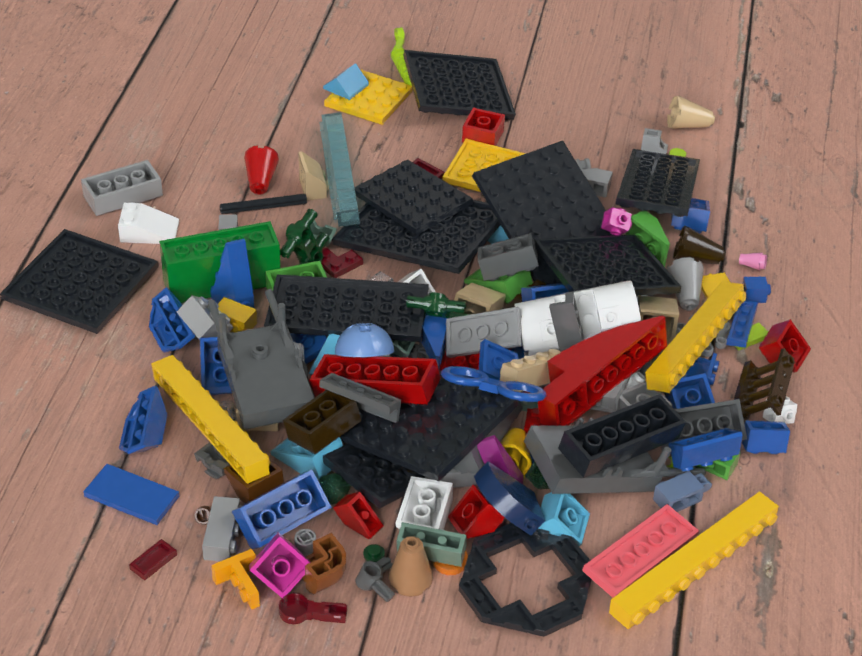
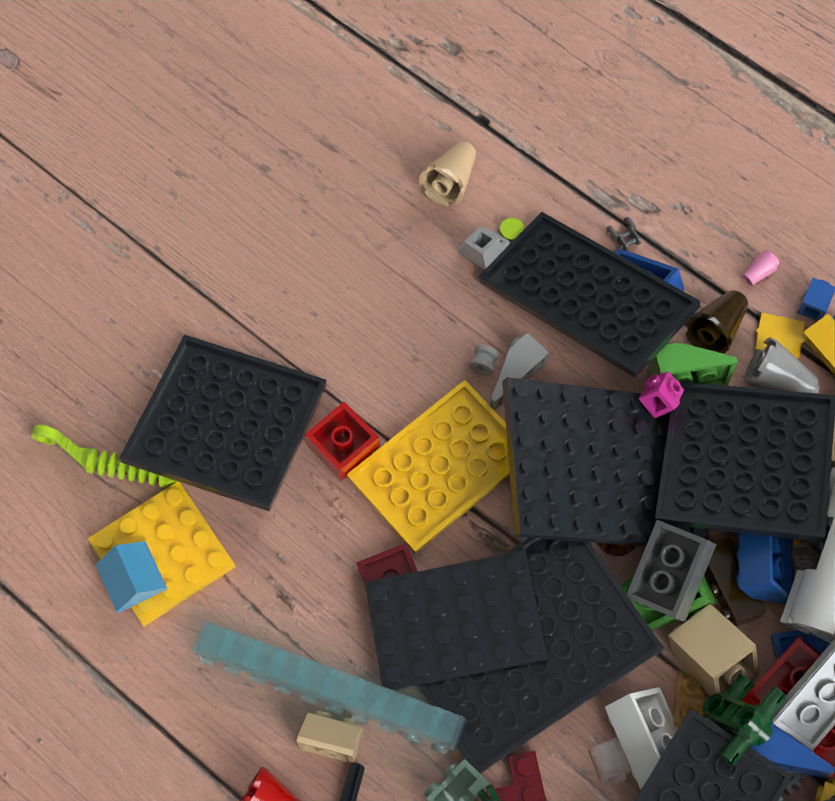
camera: 60 degrees left, 25 degrees up
(726, 201) = (619, 238): none -> dark grey piece

